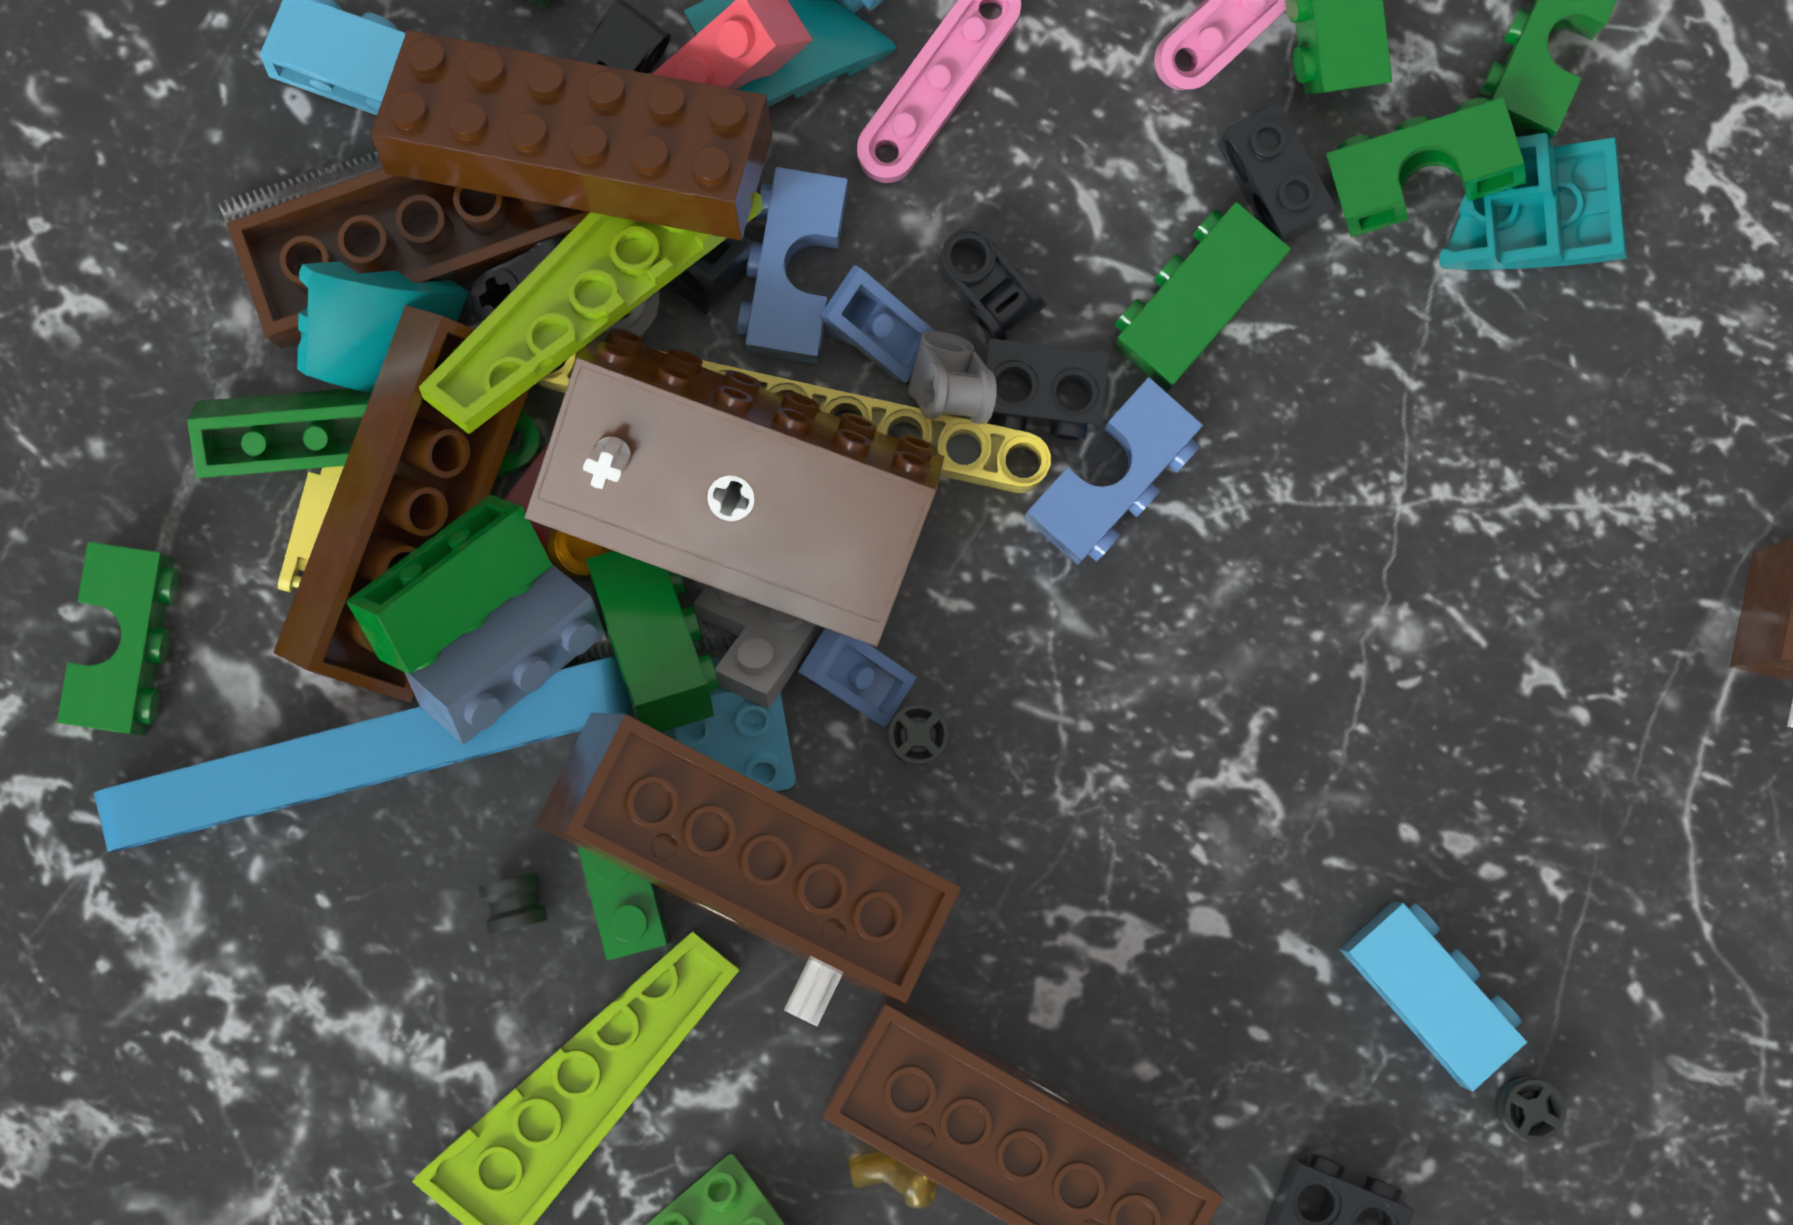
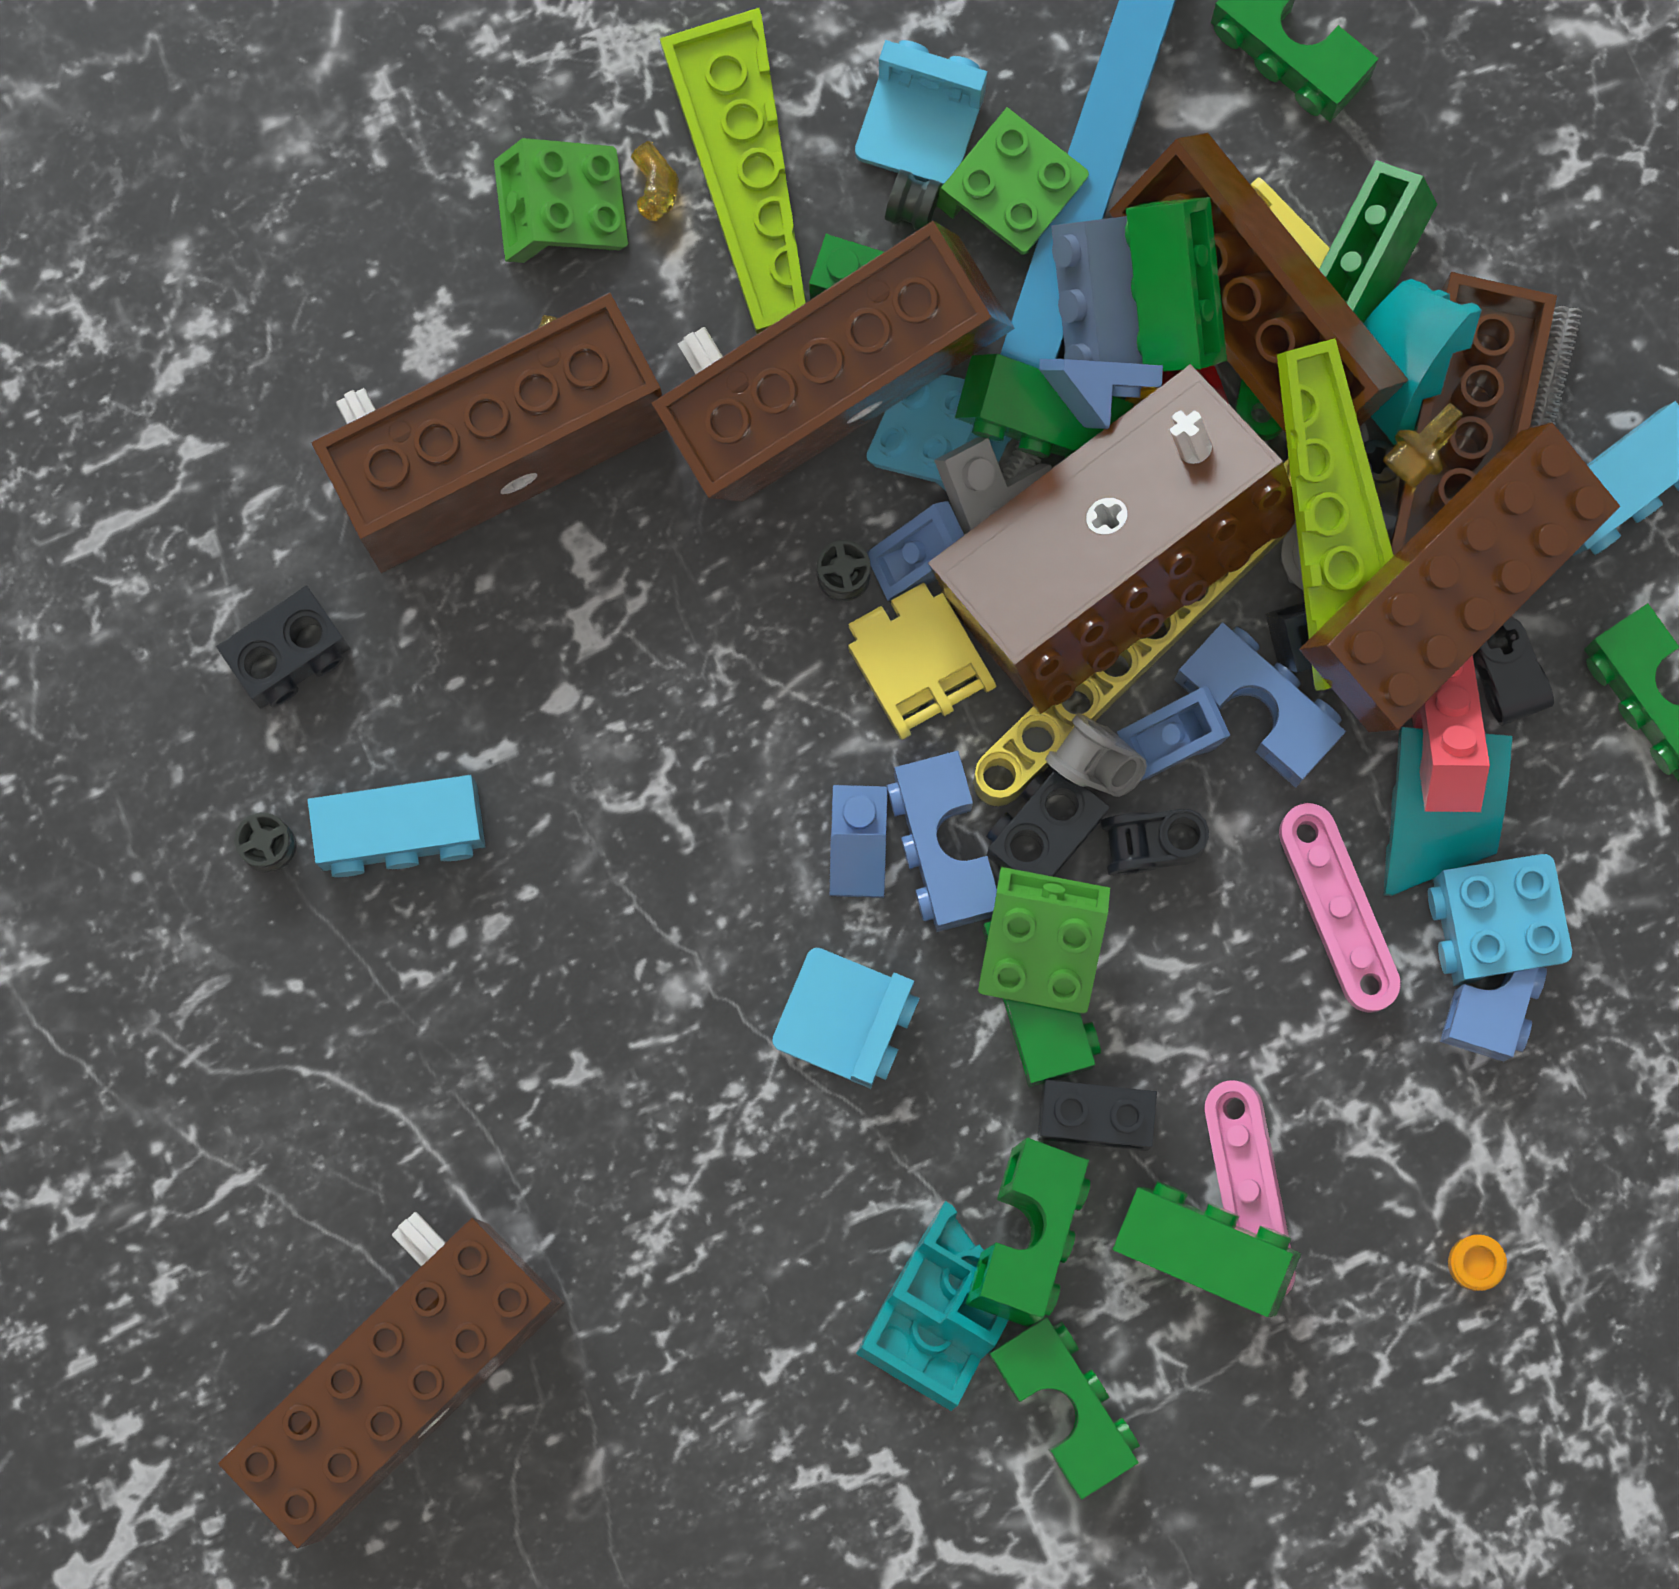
camera: 130 degrees right, 5 degrees down
(420, 951) = (921, 112): none -> medium azure bracket
(436, 813) = (1013, 182): none -> bright green bracket
(477, 253) = (1417, 453): none -> clear yellow piece
(600, 601) = (1090, 385): none -> medium blue slope
(649, 1161) = (661, 182): none -> clear yellow arm
(957, 612) = (917, 658): none -> light yellow plate
(1153, 315) = (1044, 940): none -> bright green bracket
(1161, 557) = (858, 841): none -> medium blue slope
(1335, 459) = (845, 1017): none -> medium azure bracket

